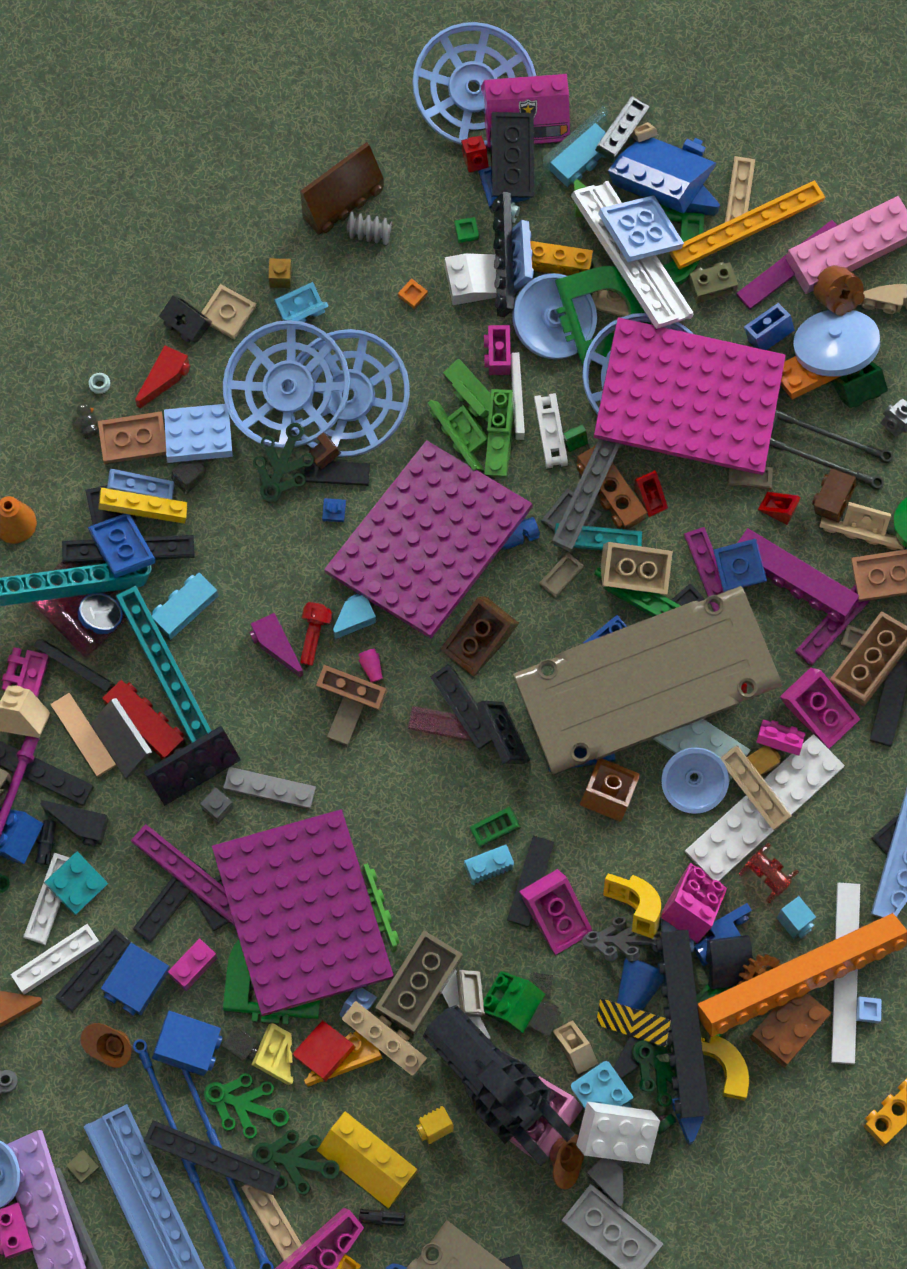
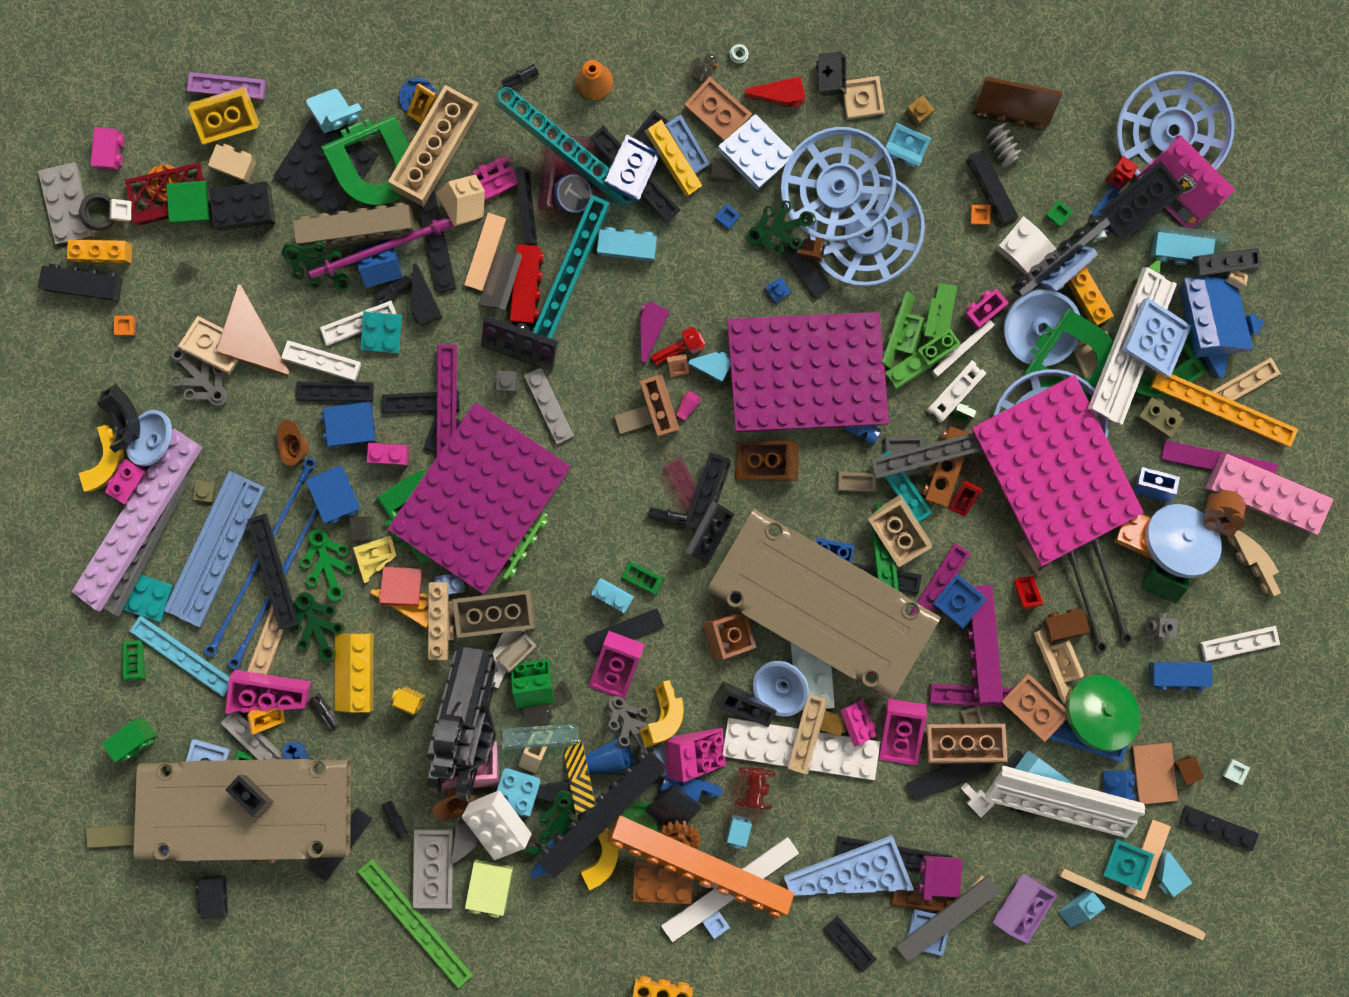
camera: 50 degrees right, 15 degrees up
(232, 503) = (727, 216): none -> blue tile
(328, 645) = (678, 365): none -> nougat plate
(397, 266) = (992, 187): none -> black fence
(456, 761) = (667, 515): none -> black axle
(536, 1232) = (394, 819): none -> black axle
(566, 1030) = (539, 736): none -> clear light blue tile
(672, 1193) = (489, 888): none -> yellowish green brick
(684, 825) = (744, 704): none -> black slope

